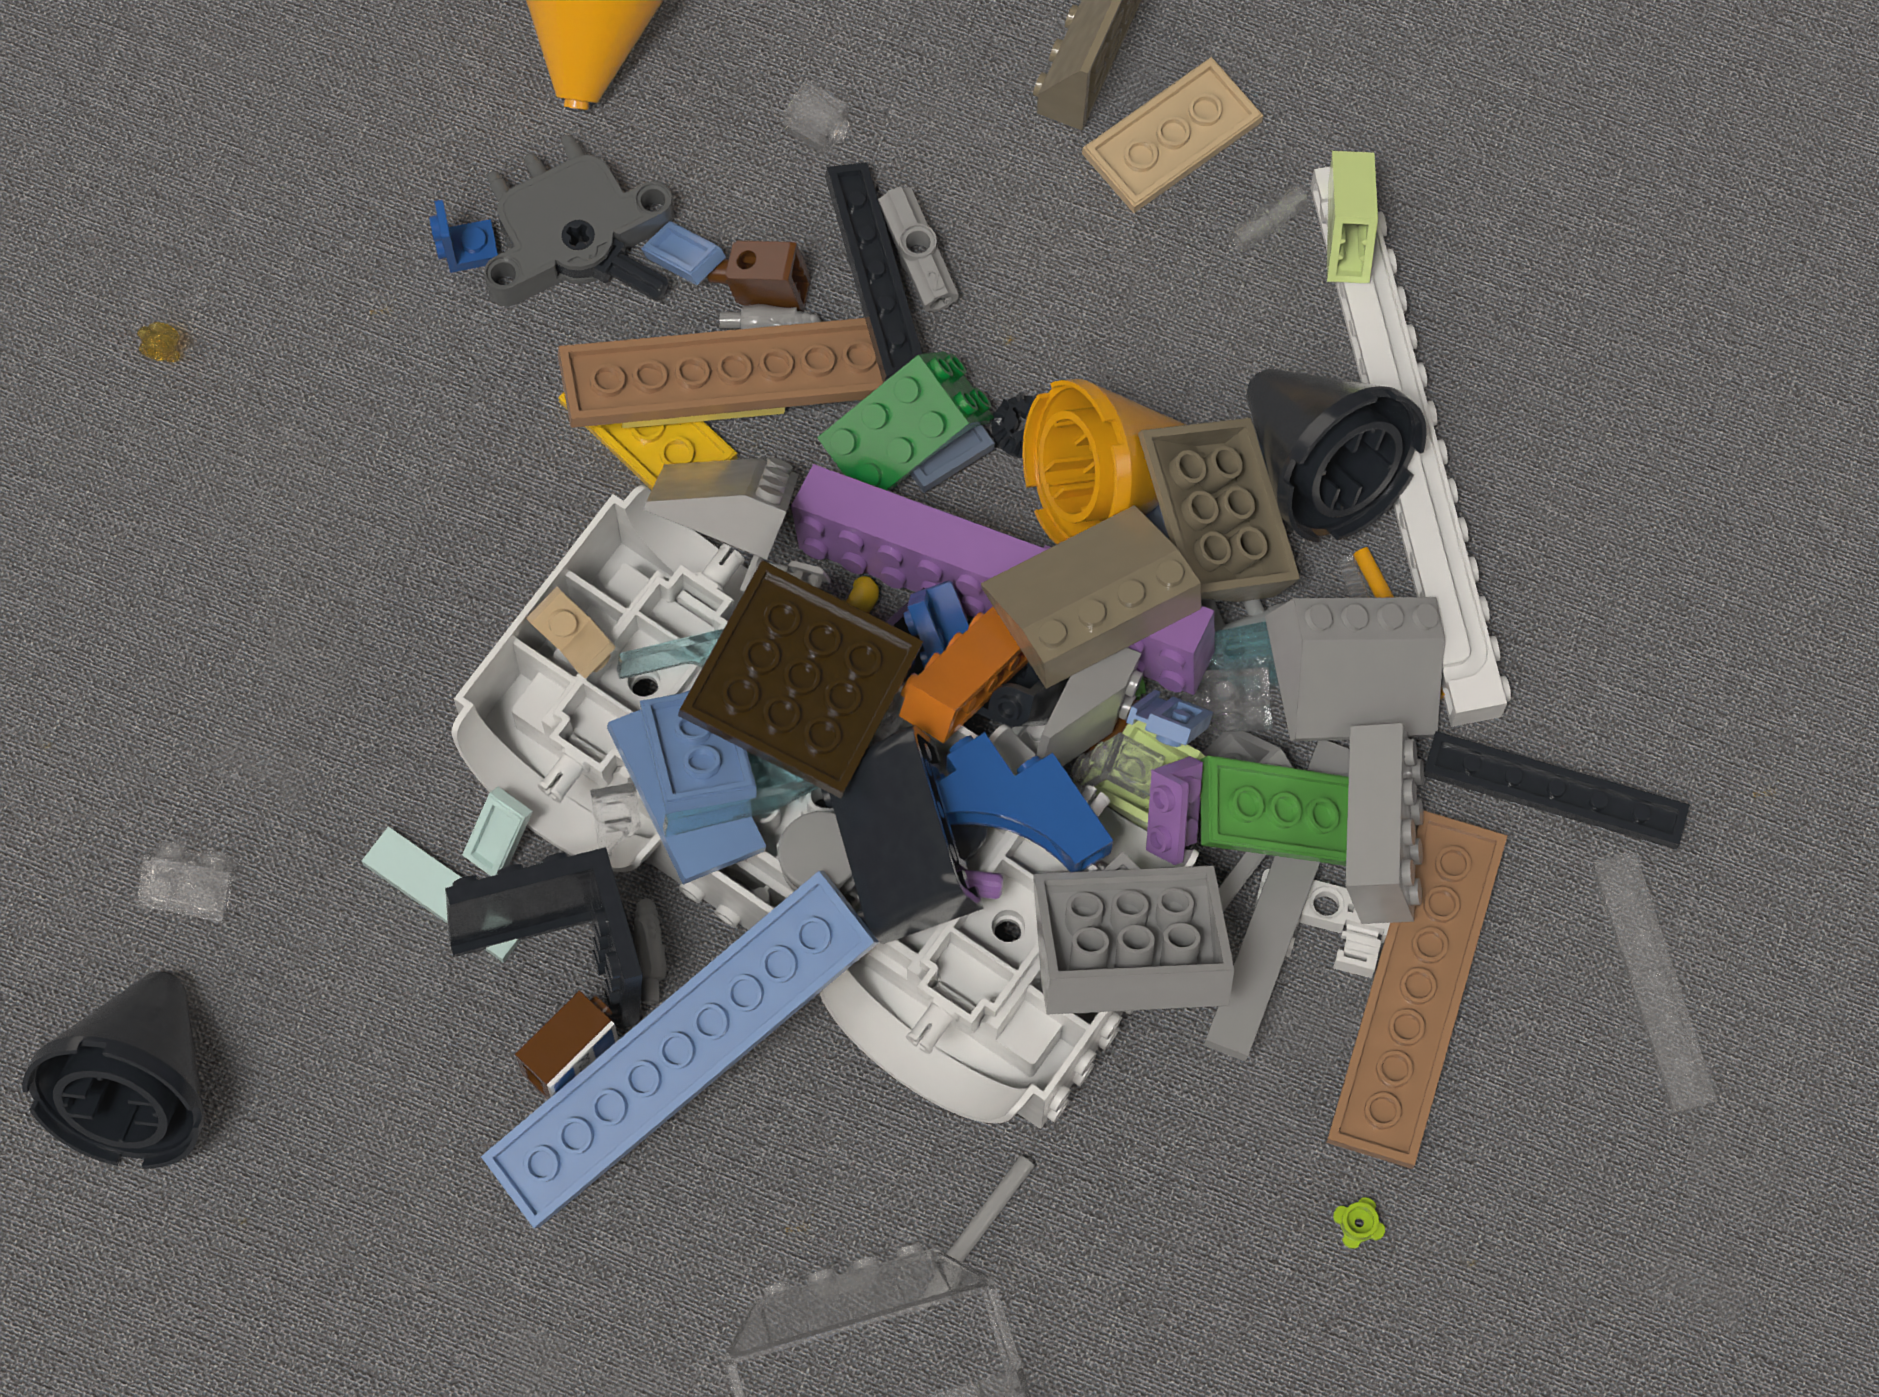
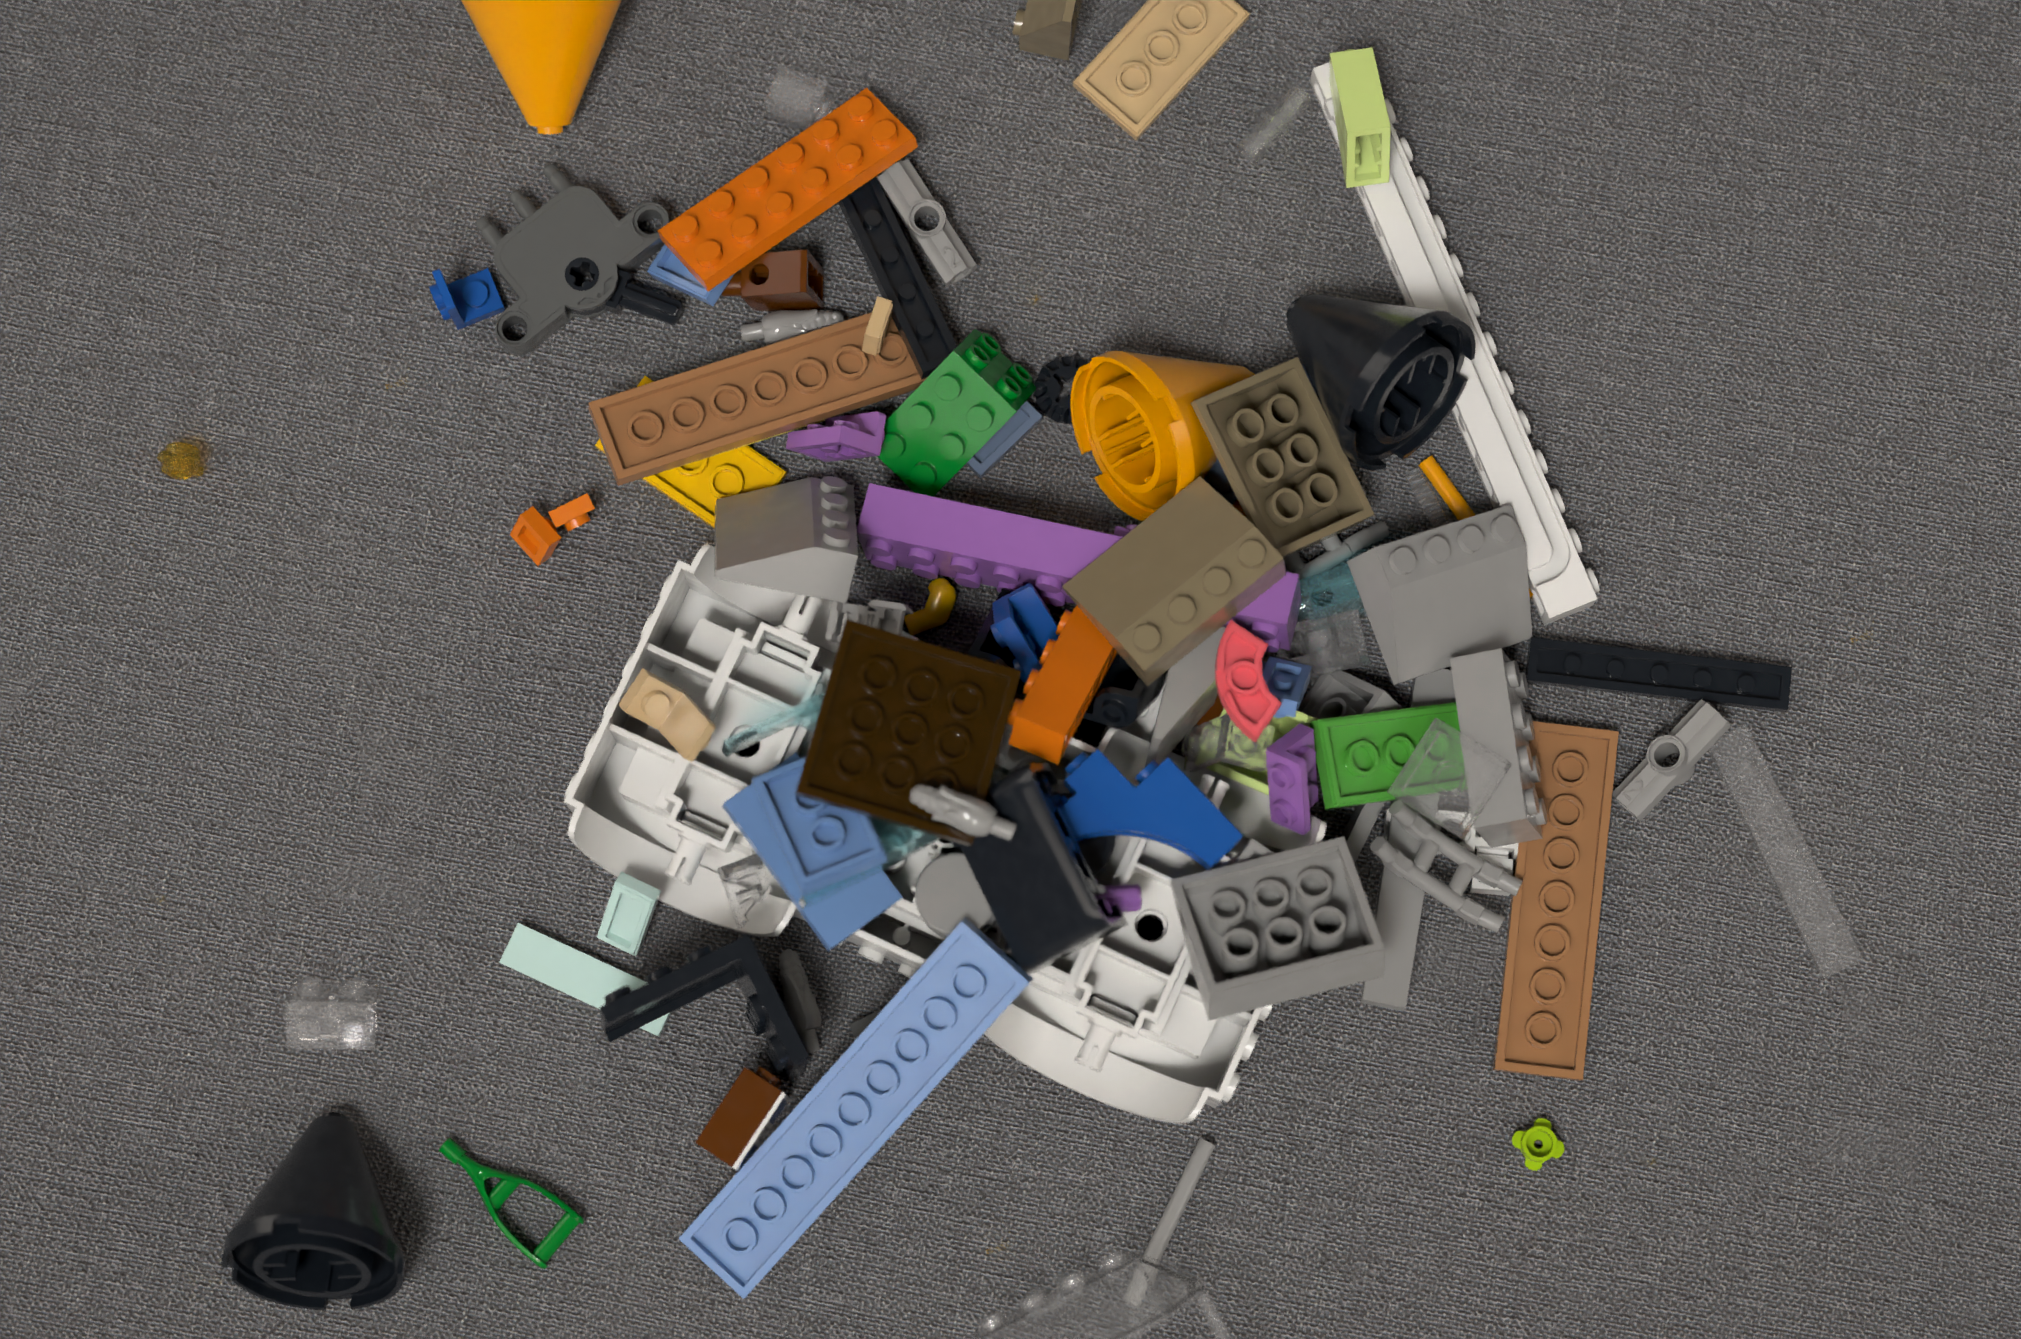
camera: 10 degrees left, 10 degrees up
(315, 1082) = (502, 1191): none -> green piece
(483, 468) = (535, 535): none -> orange plate
(523, 452) = (573, 513): none -> orange plate
(789, 190) = (787, 189): none -> orange plate
(793, 426) = (841, 437): none -> medium lavender bracket
(838, 758) = (962, 811): none -> light grey piece
(850, 328) = (877, 326): none -> tan tile
(1139, 700) = (1241, 681): none -> coral tile
(1329, 835) = (1449, 778): none -> clear tile
(1334, 934) = (1468, 865): none -> light grey piece
(1536, 887) = (1691, 740): none -> light grey piece

